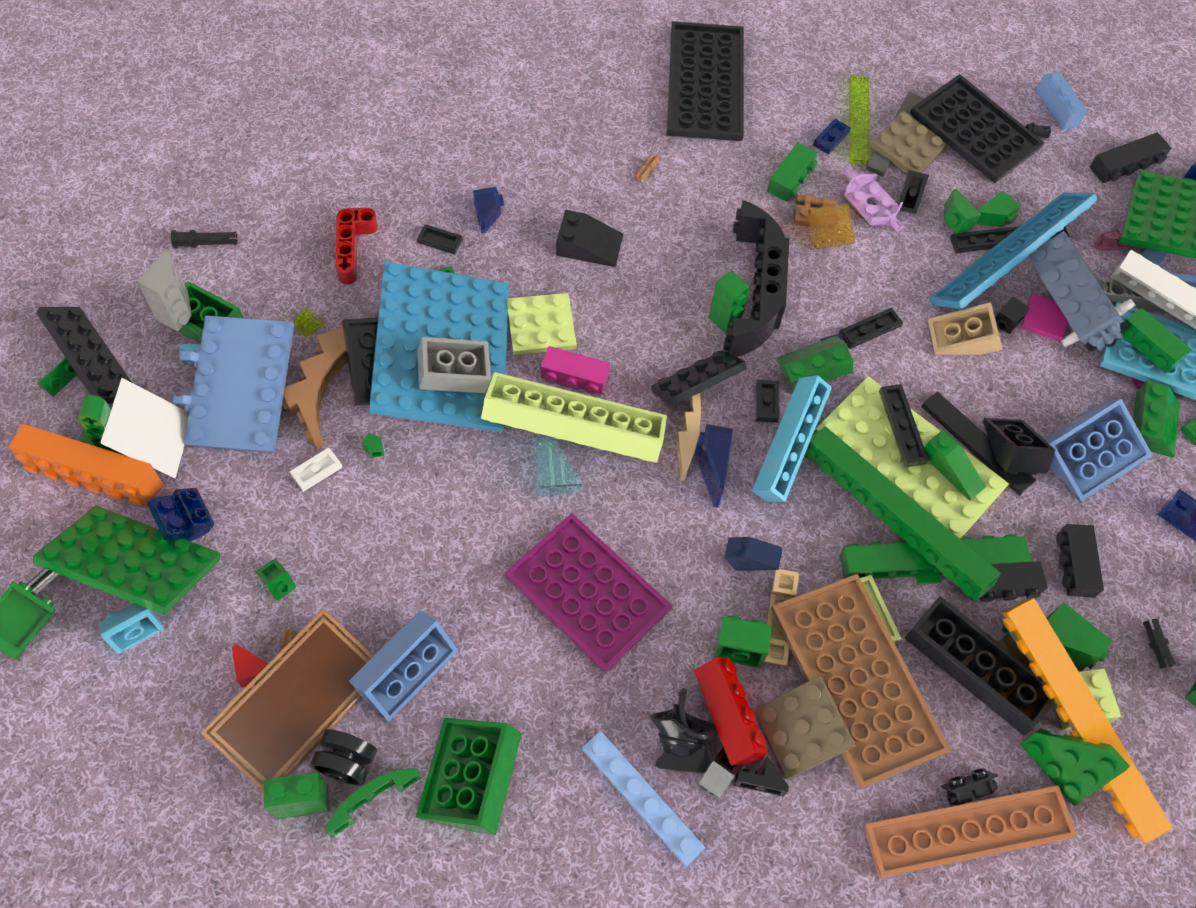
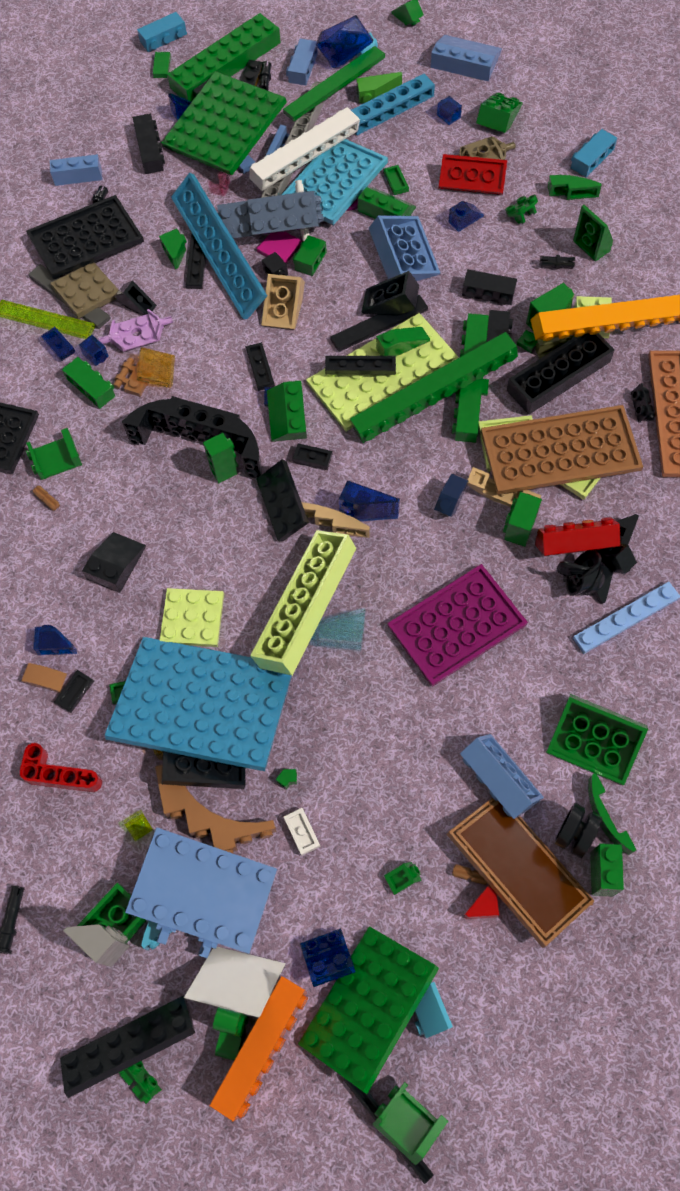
camera: 70 degrees left, 5 degrees up
(448, 210) = (44, 677): none -> medium nougat slope
(453, 365) = (236, 688): light grey brick -> none
(575, 370) = (250, 596): dark pink brick -> none
(695, 163) = (54, 456): none -> green panel
(792, 439) = (357, 444): medium azure brick -> none
(804, 727) = (593, 492): dark tan plate -> none
(833, 167) = (93, 350): none -> clear blue brick
(960, 213) = (167, 273): green slope -> none
(1043, 348) = (310, 255): none -> green brick
(1074, 763) = (640, 335): green plate -> none
(1155, 341) = (328, 180): green brick -> none

